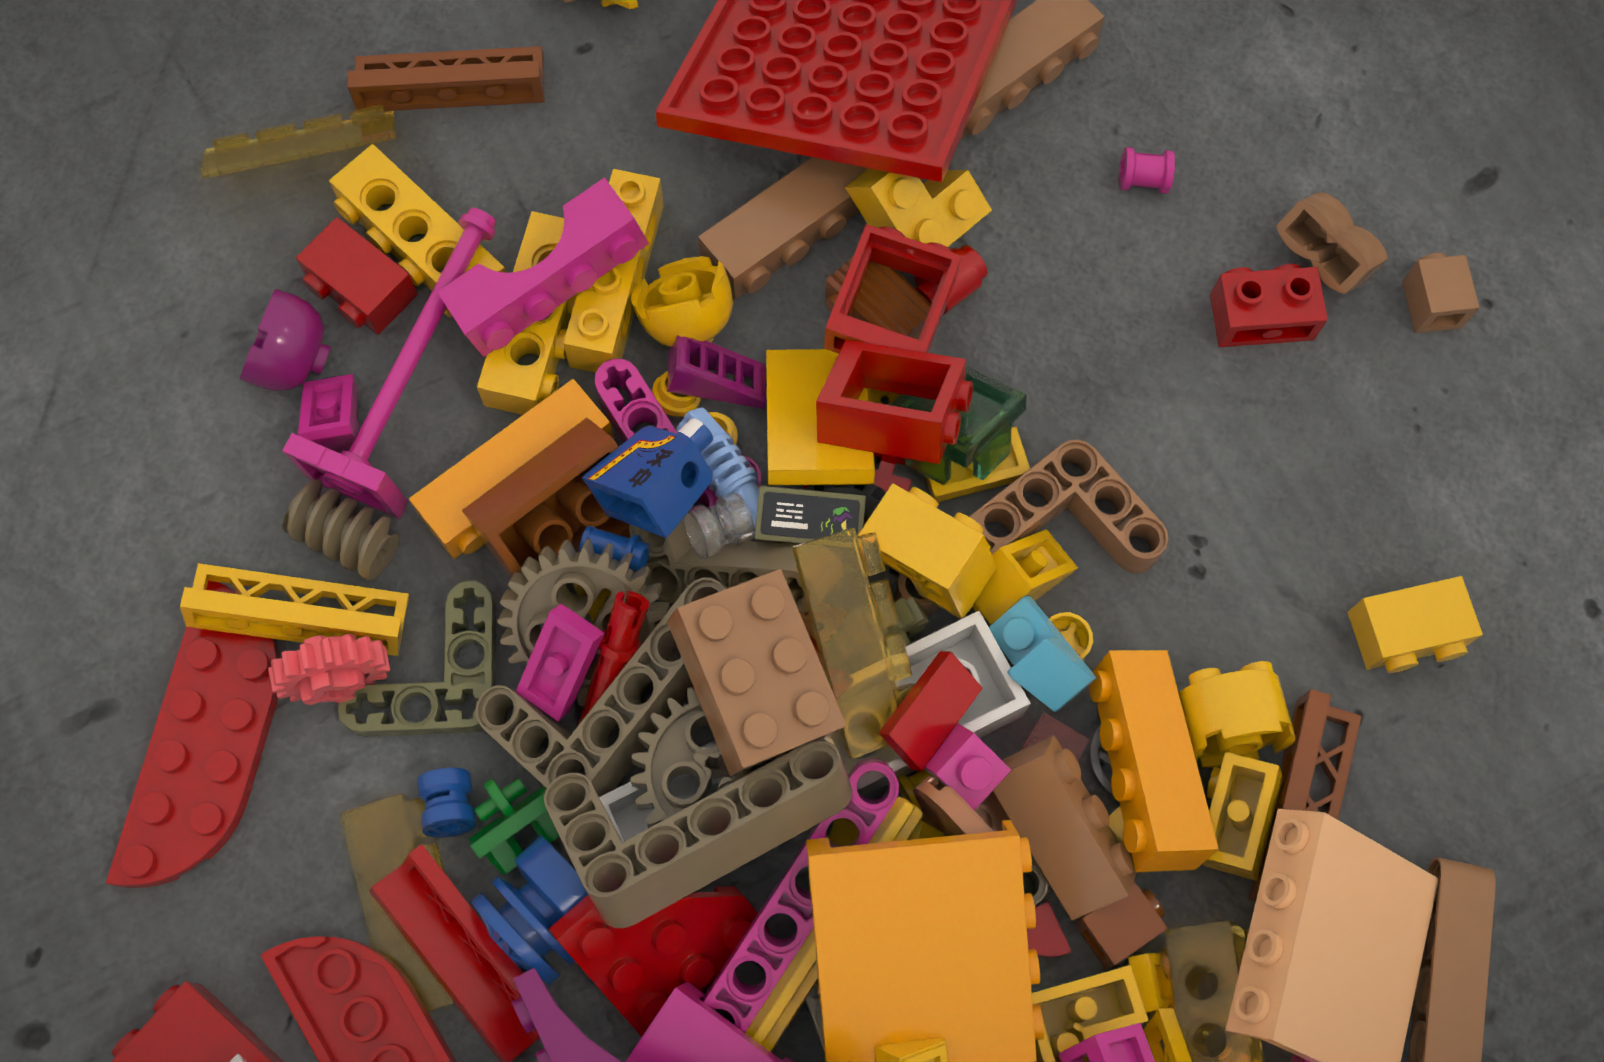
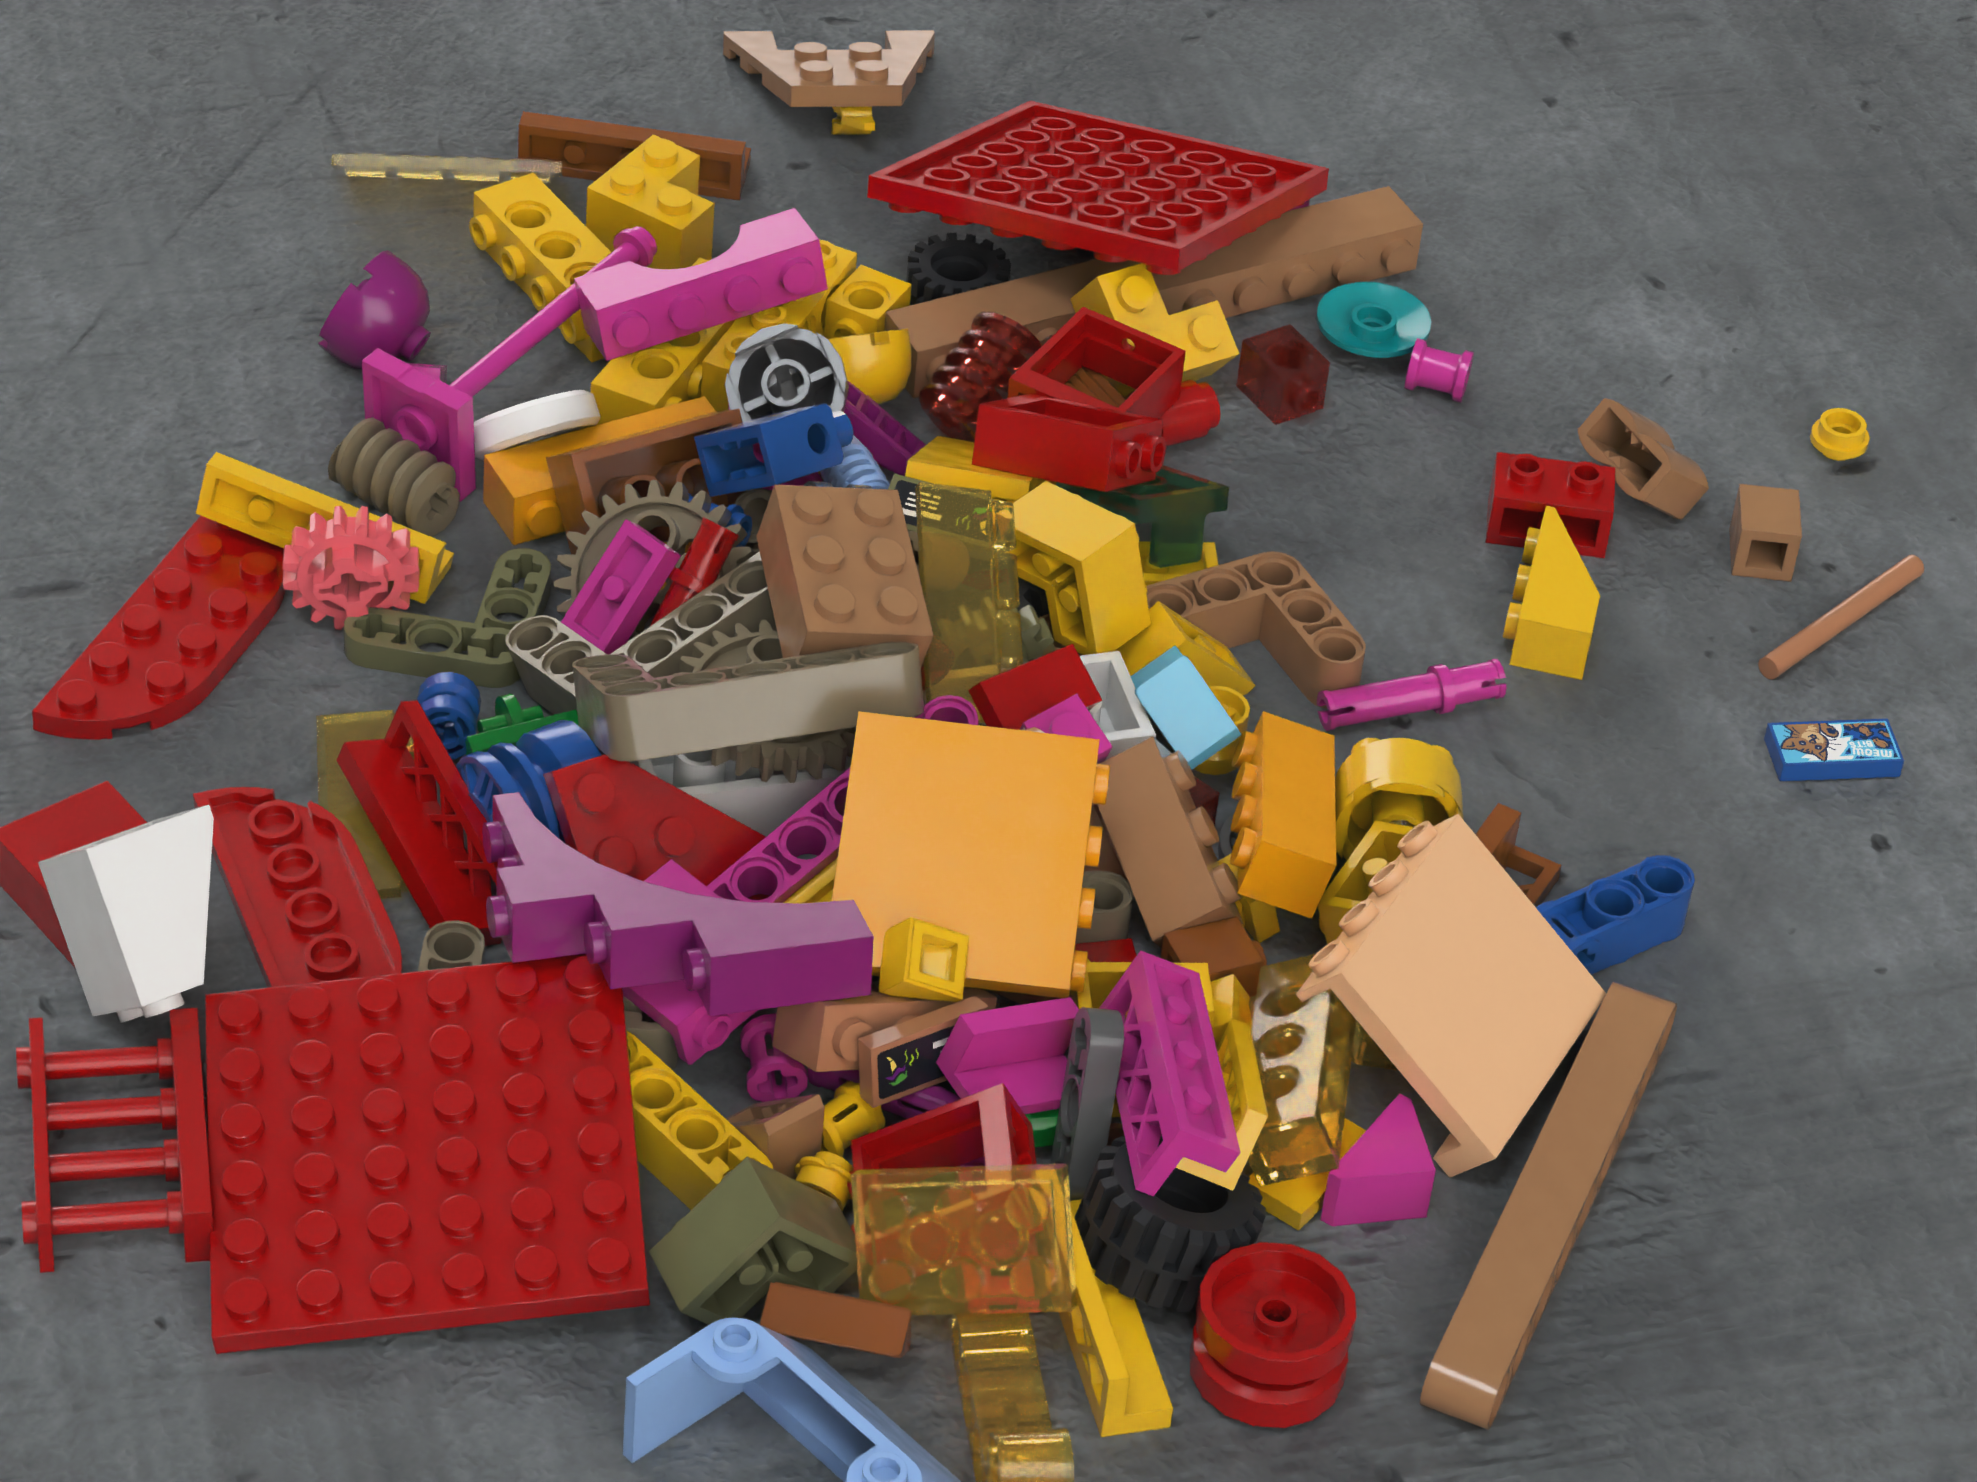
camera: 10 degrees right, 30 degrees down
(356, 276) = (478, 284): red brick -> none
(440, 448) = (535, 421): none -> white wheel
(472, 152) = (658, 192): none -> yellow brick
(643, 386) = (785, 371): none -> flat silver cylinder
(678, 210) = (862, 303): none -> yellow brick
(735, 189) = (954, 267): none -> black tyre
(789, 291) = (975, 372): none -> clear red piece
(1028, 192) = (1283, 374): none -> clear red brick
(1087, 111) = (1373, 319): none -> teal dish
(1222, 544) = (1435, 690): none -> dark pink pin
(1299, 426) = (1557, 605): none -> yellow slope
(1393, 804) = (1623, 912): none -> blue piece
(1415, 624) = (1644, 785): yellow brick -> none
(1477, 151) = (1840, 434): none -> yellow plate
(1512, 365) = (1841, 617): none -> nougat bar
(1539, 521) = (1833, 749): none -> tile

